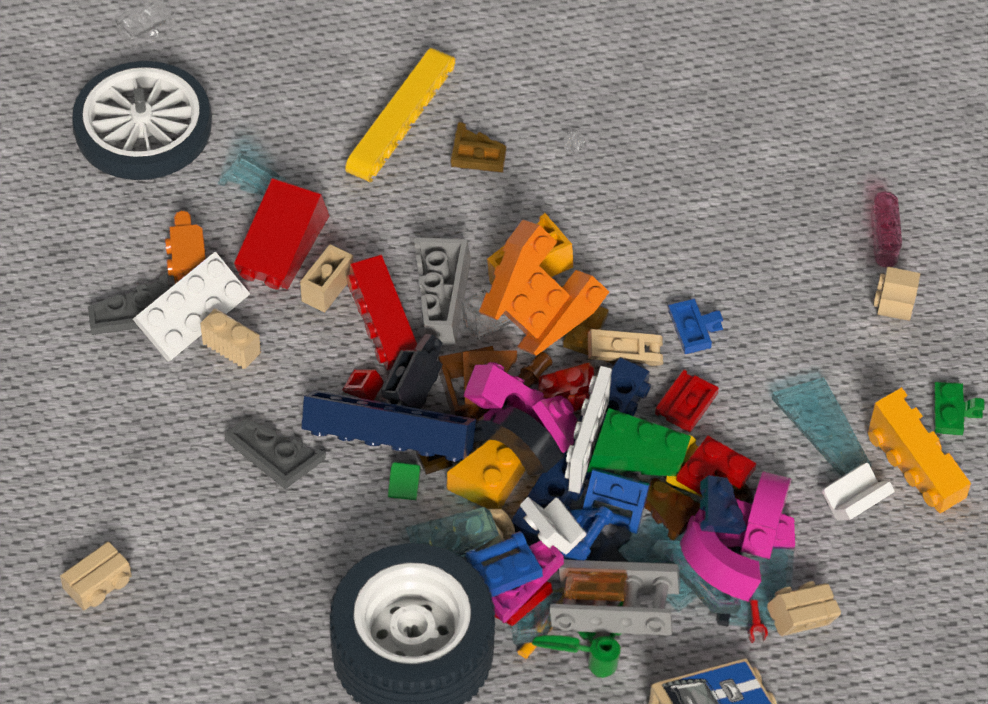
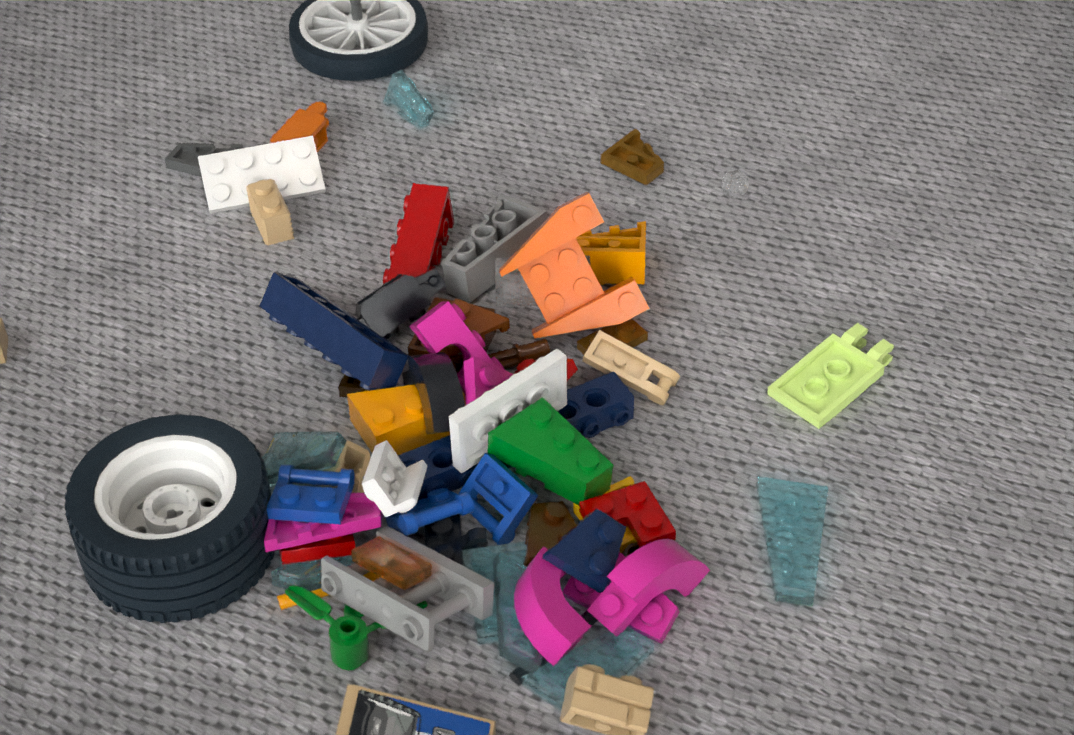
camera: 35 degrees right, 10 degrees down
(277, 457) = (220, 319): dark grey wing -> none
(281, 234) = (391, 151): red slope -> none
(326, 278) = (386, 197): tan brick -> none
(364, 384) = (349, 298): red slope -> none
(399, 113) = (587, 105): yellow beam -> none
(404, 481) = (314, 392): green slope -> none
(687, 401) = (658, 446): red plate -> none
(692, 327) = (723, 379): blue plate -> none
(756, 622) = (546, 696): red hand -> none
(761, 285) = (831, 376): none -> yellowish green tile
(855, 492) = (773, 614): white panel -> none
(886, 229) = (1014, 380): clear pink beam -> none
(897, 293) = (975, 438): tan brick -> none
(917, 452) = (877, 607): light orange wedge -> none
(951, 408) = (965, 584): green plate -> none

